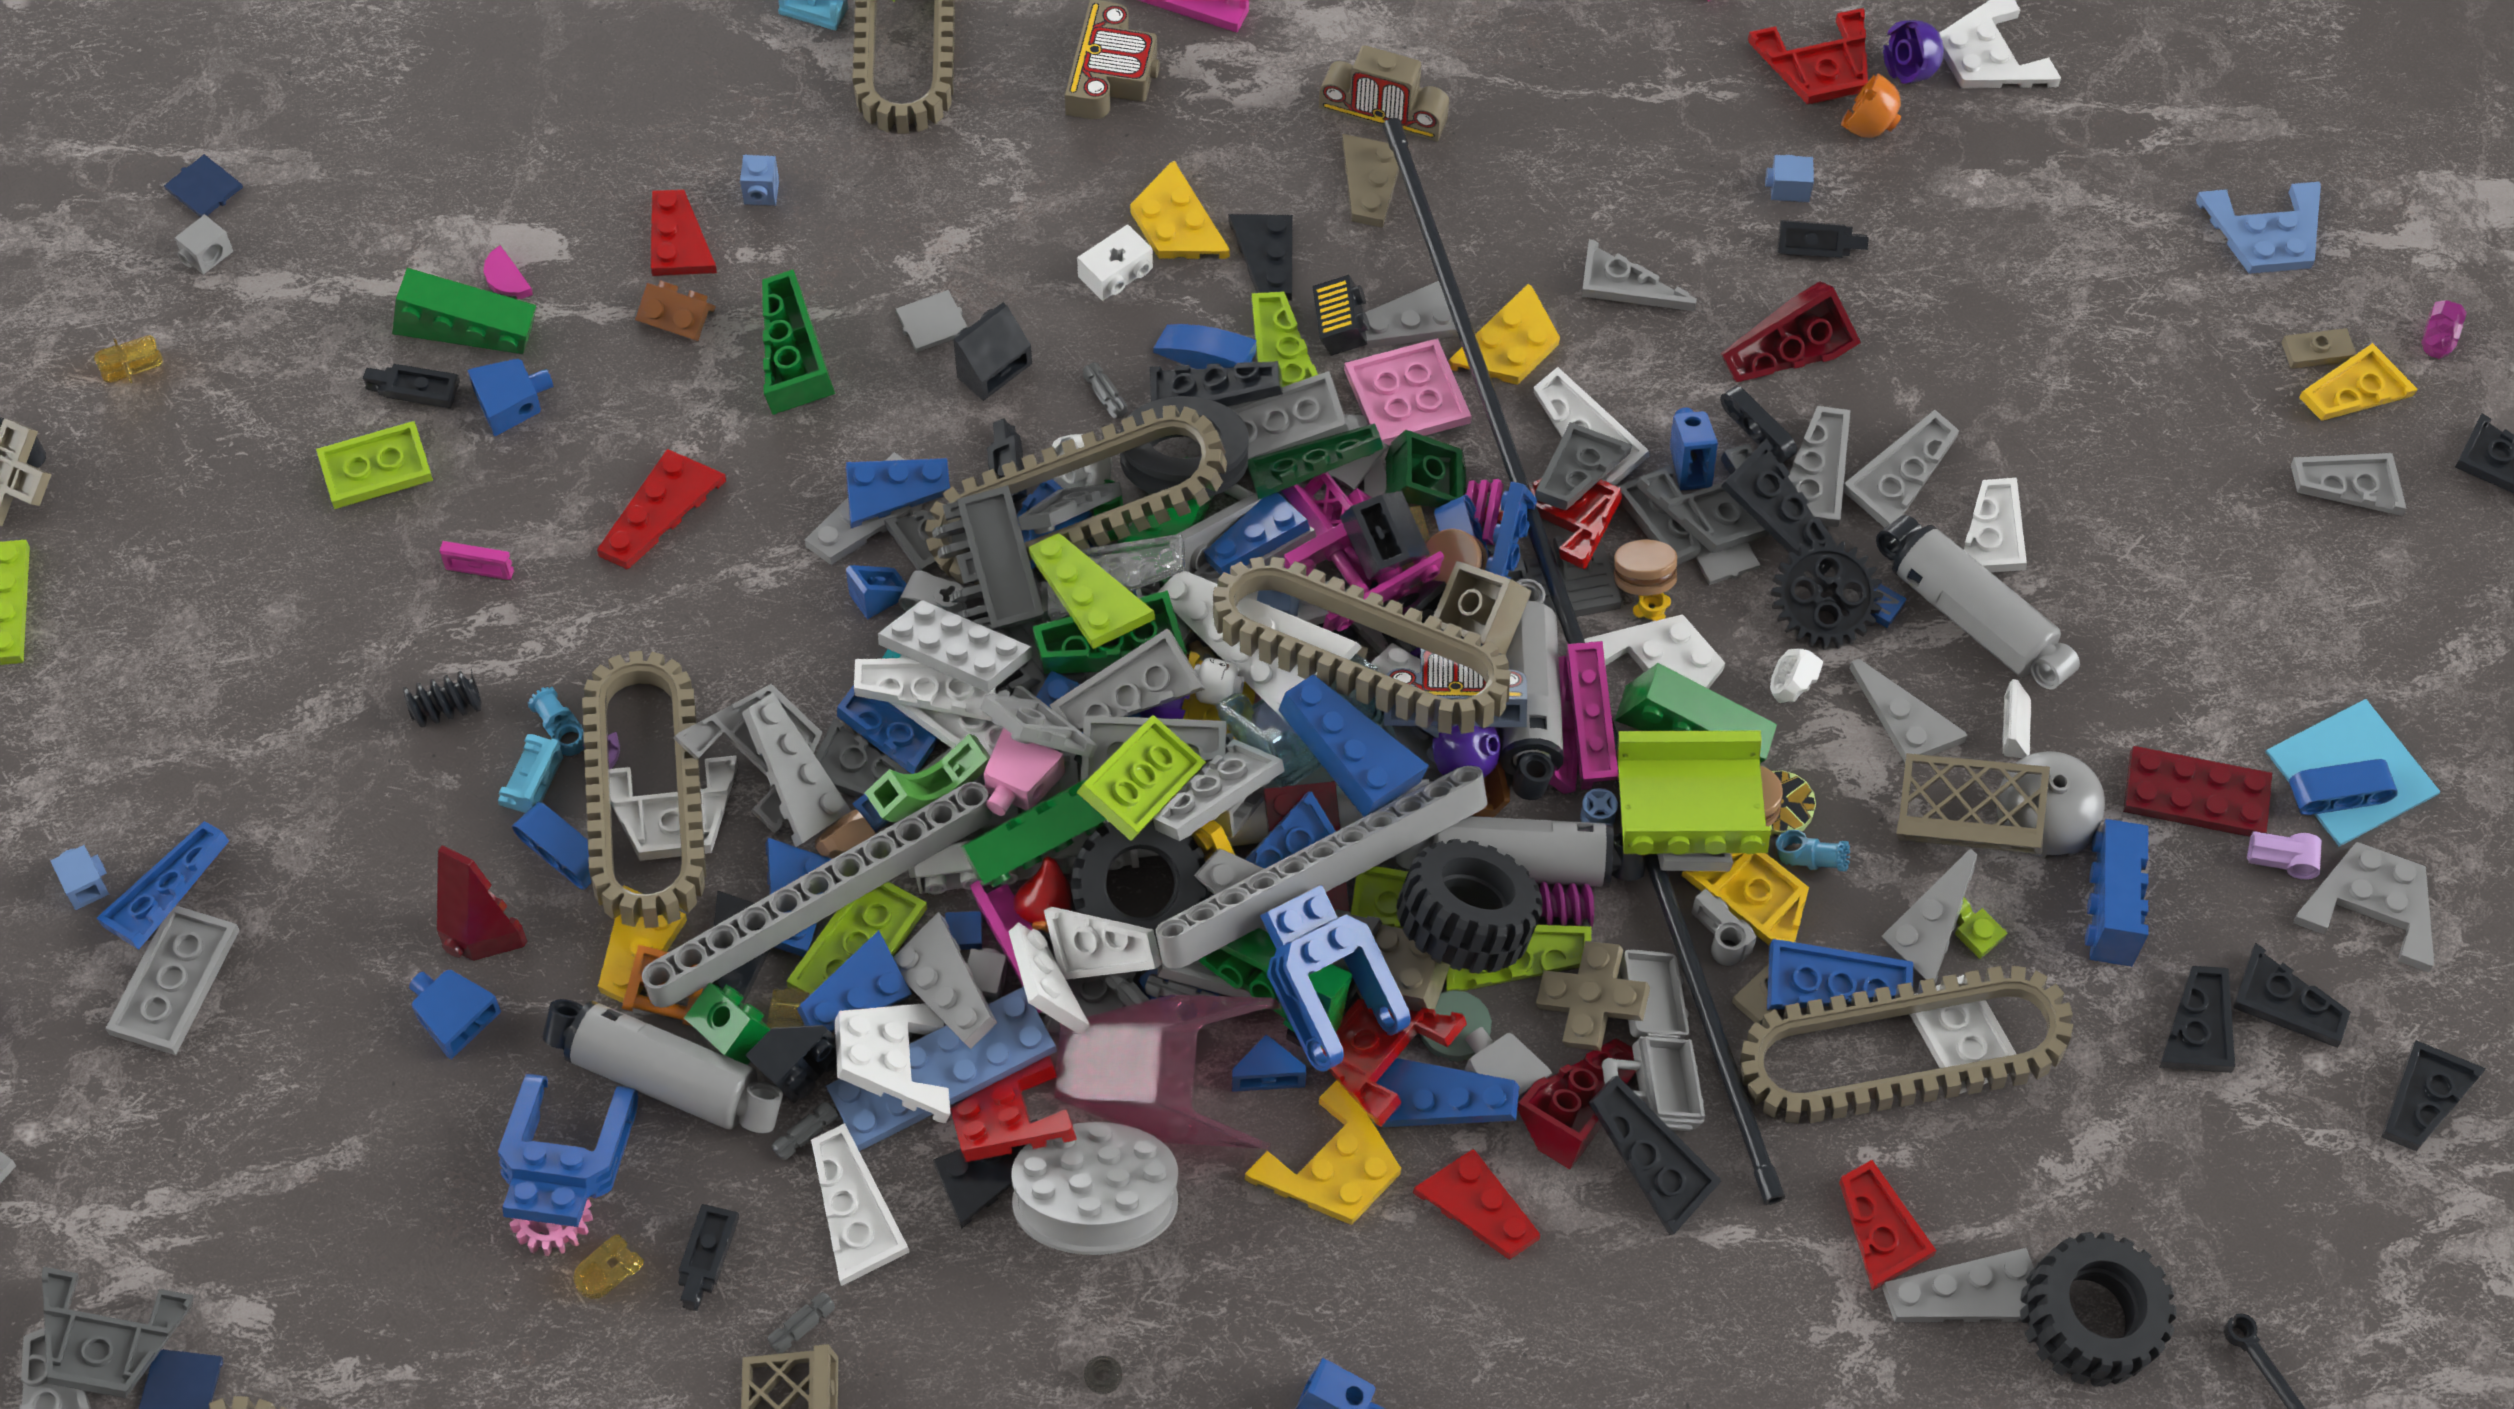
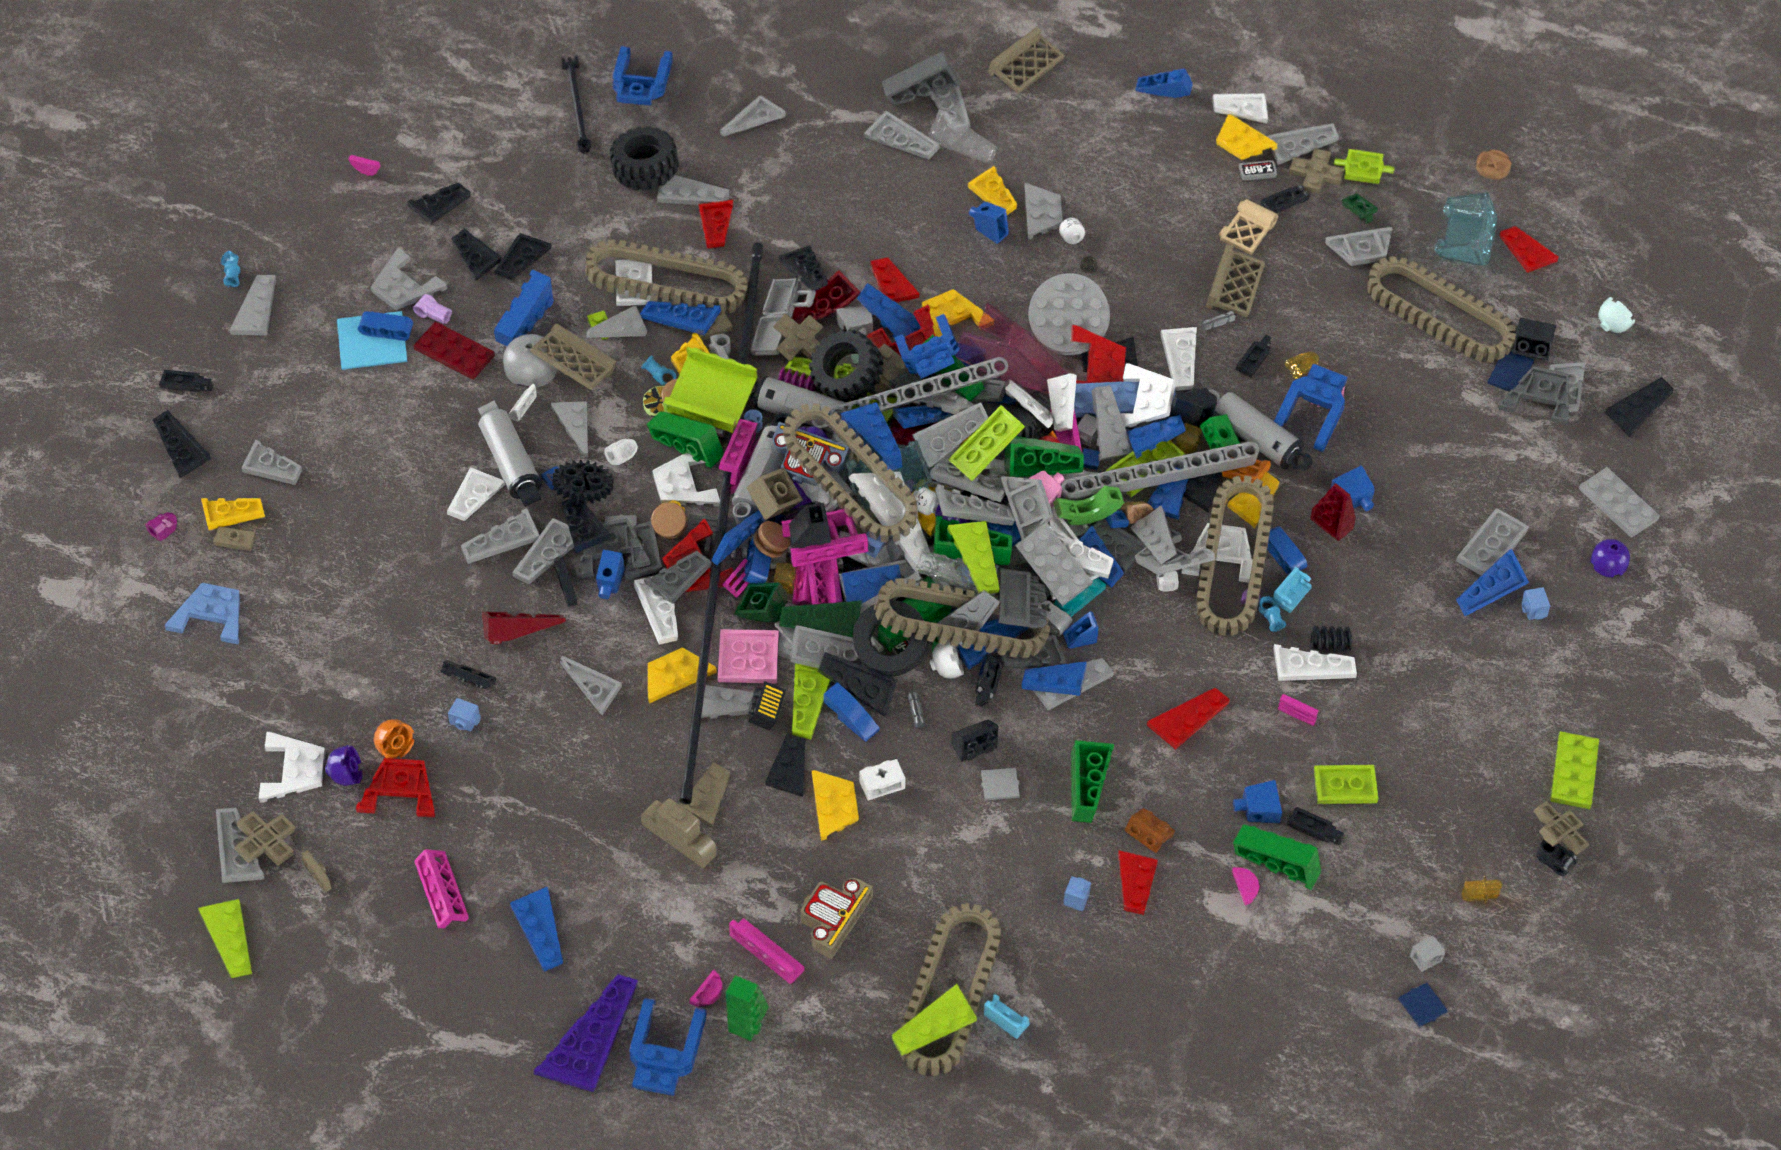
camera: 160 degrees left, 5 degrees down
(484, 645) = (1311, 665): none -> white wing

